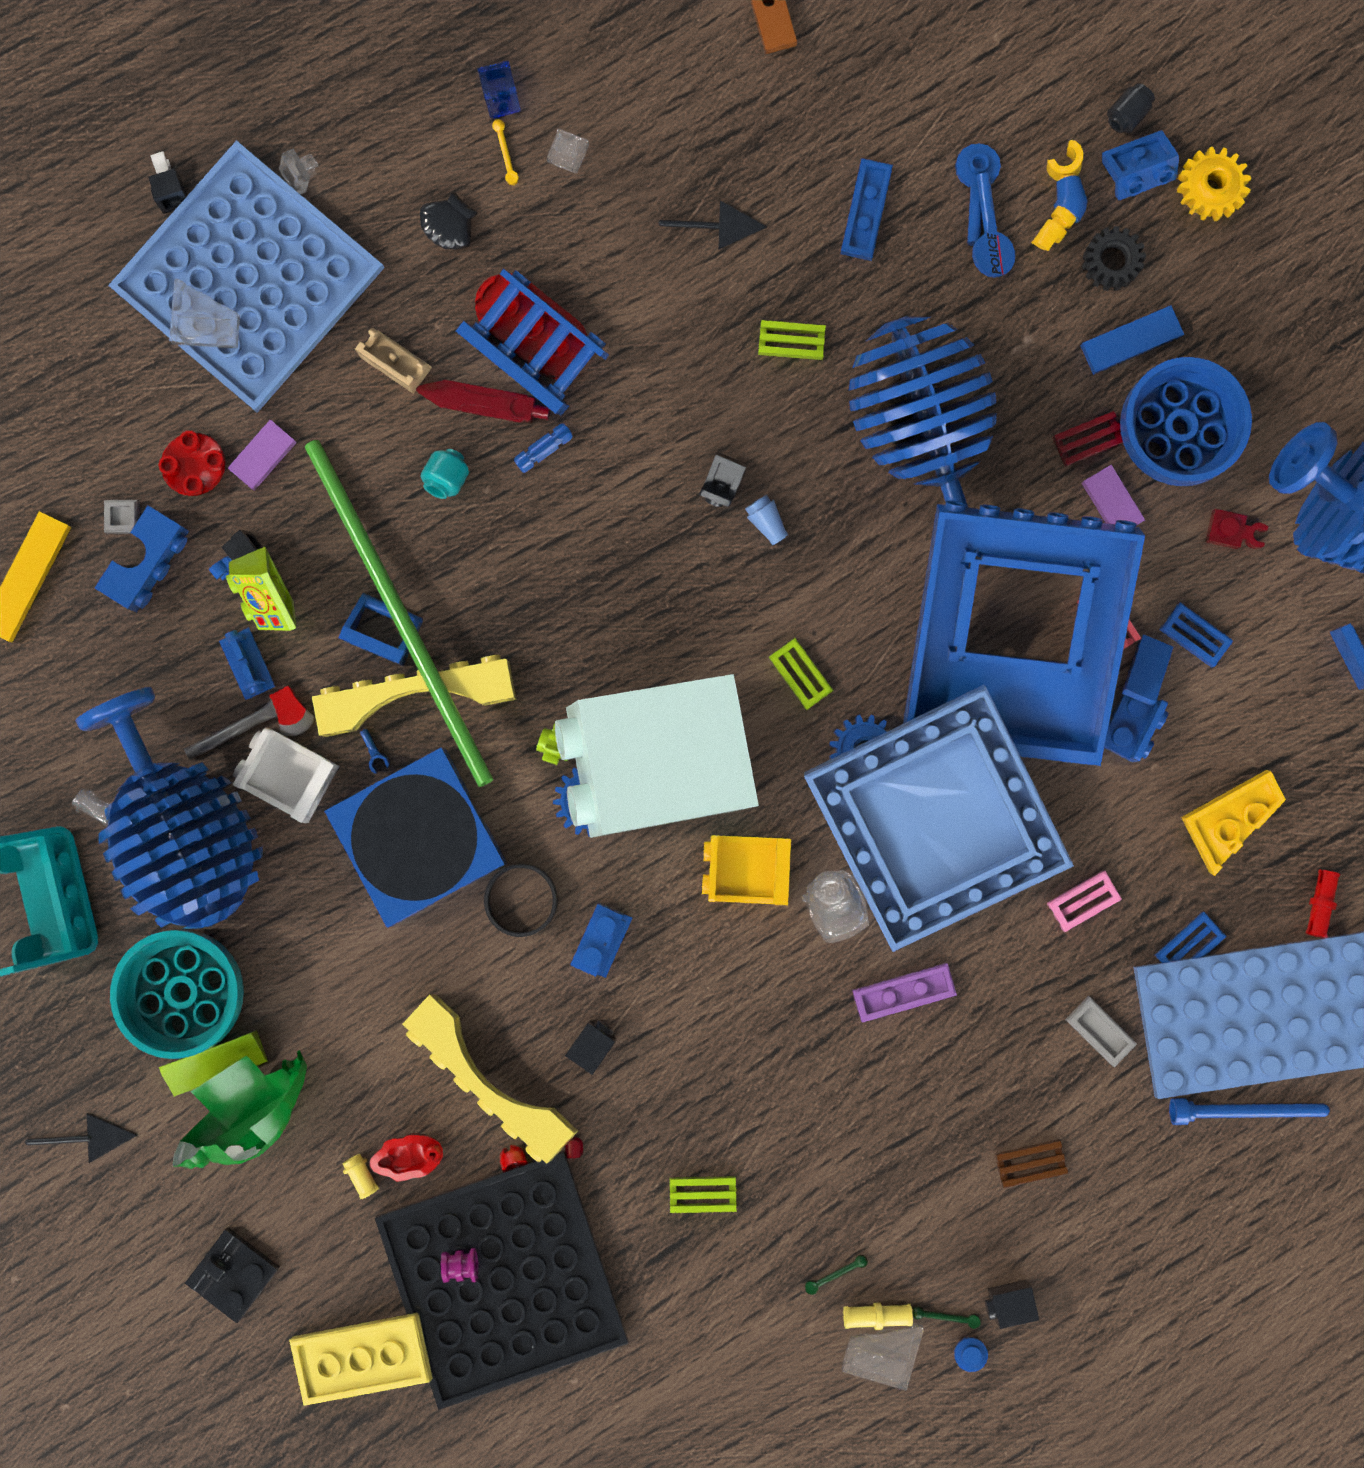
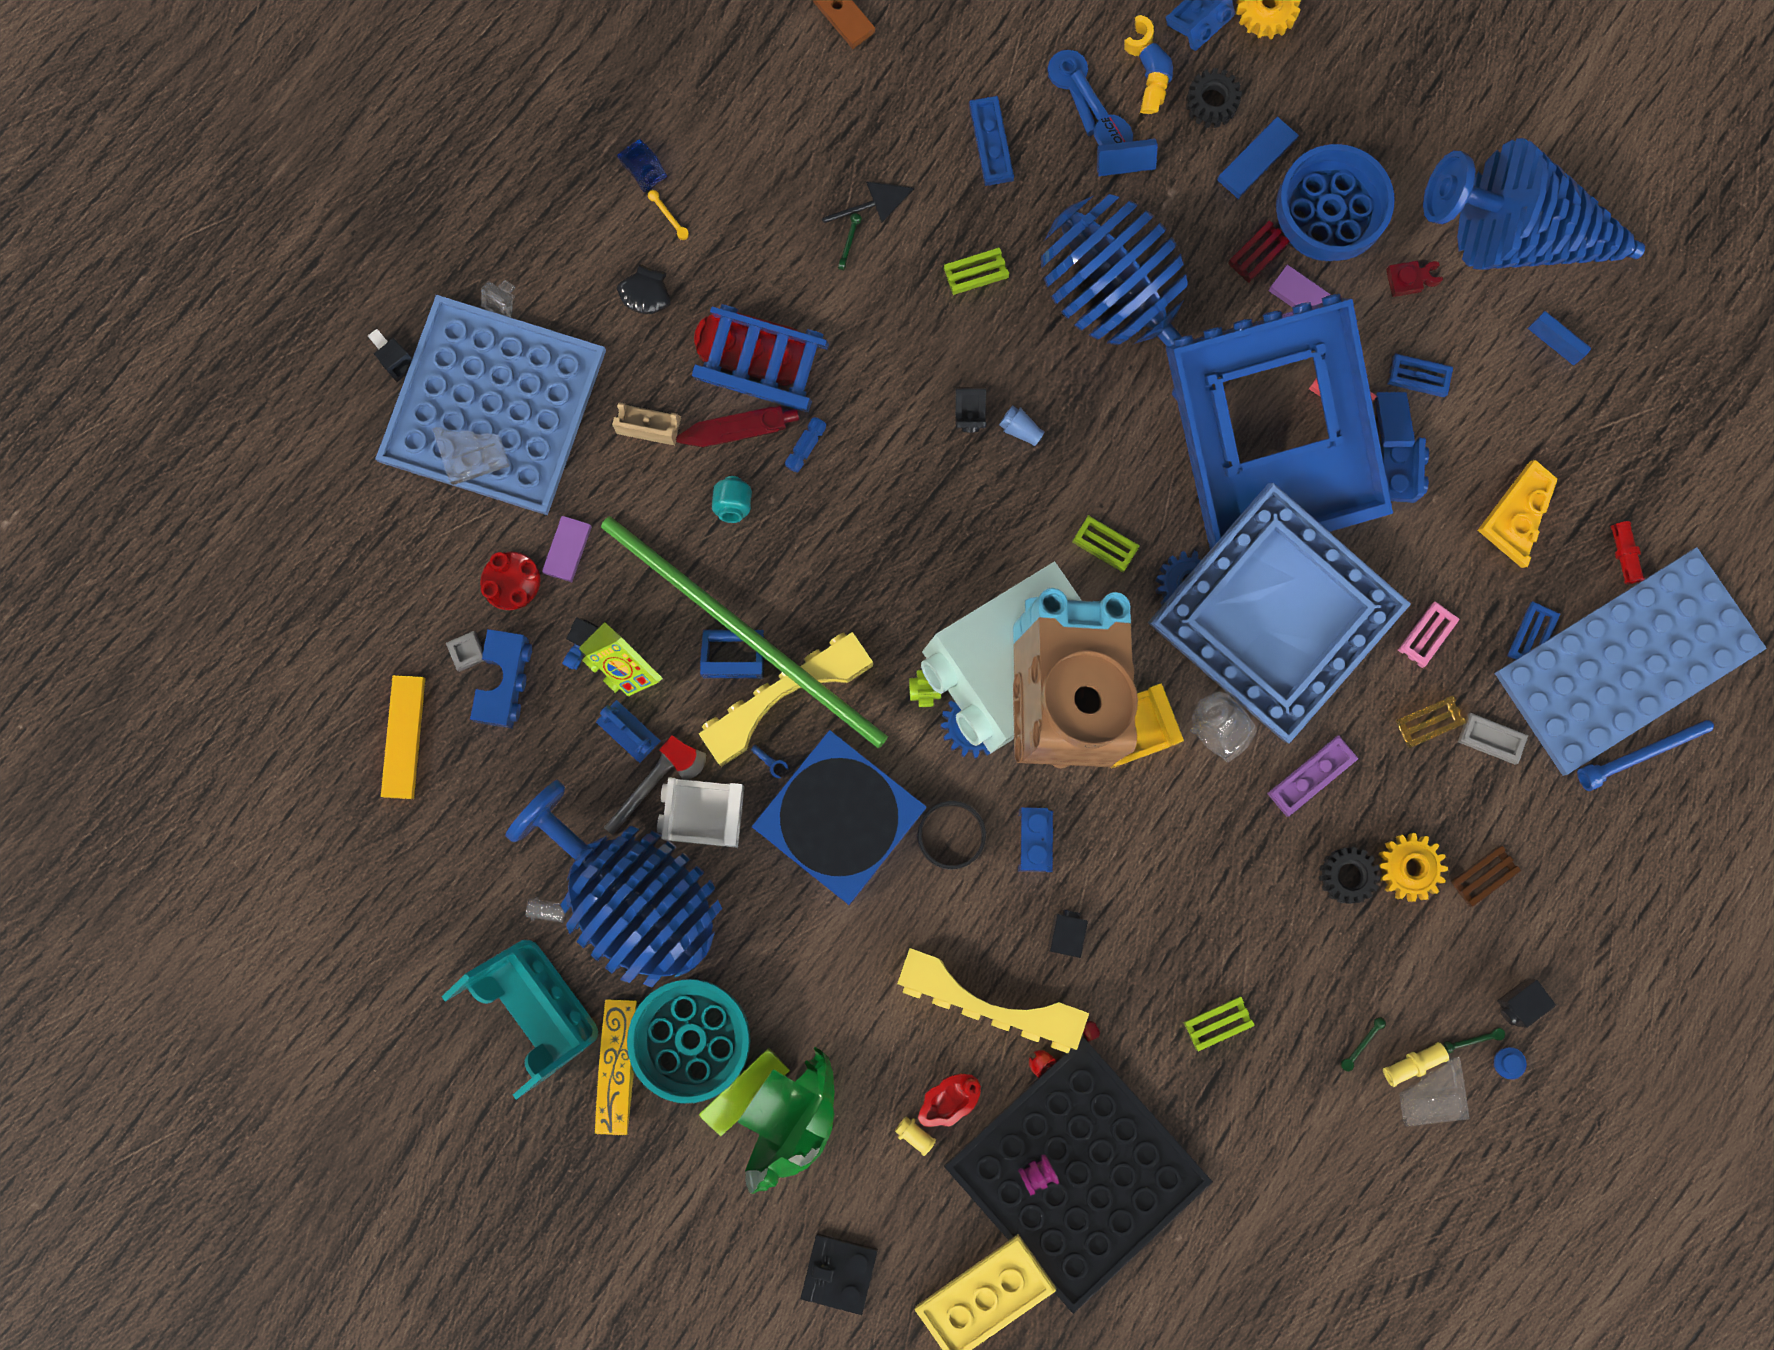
camera: 25 degrees left, 5 degrees down
(92, 997) = (615, 1069): none -> yellow slope
(101, 1138) = (671, 1202): black piece -> none
(567, 151) = (720, 193): clear tile -> none
(689, 807) = (1074, 681): none -> medium nougat piece
(692, 235) = (855, 219): none -> dark green hinge
(913, 1116) = (1367, 870): none -> black tyre
(972, 1137) = (1426, 861): none -> yellow gear
(996, 285) = (1127, 157): none -> blue tile
(1074, 988) = (1453, 711): none -> clear yellow tile

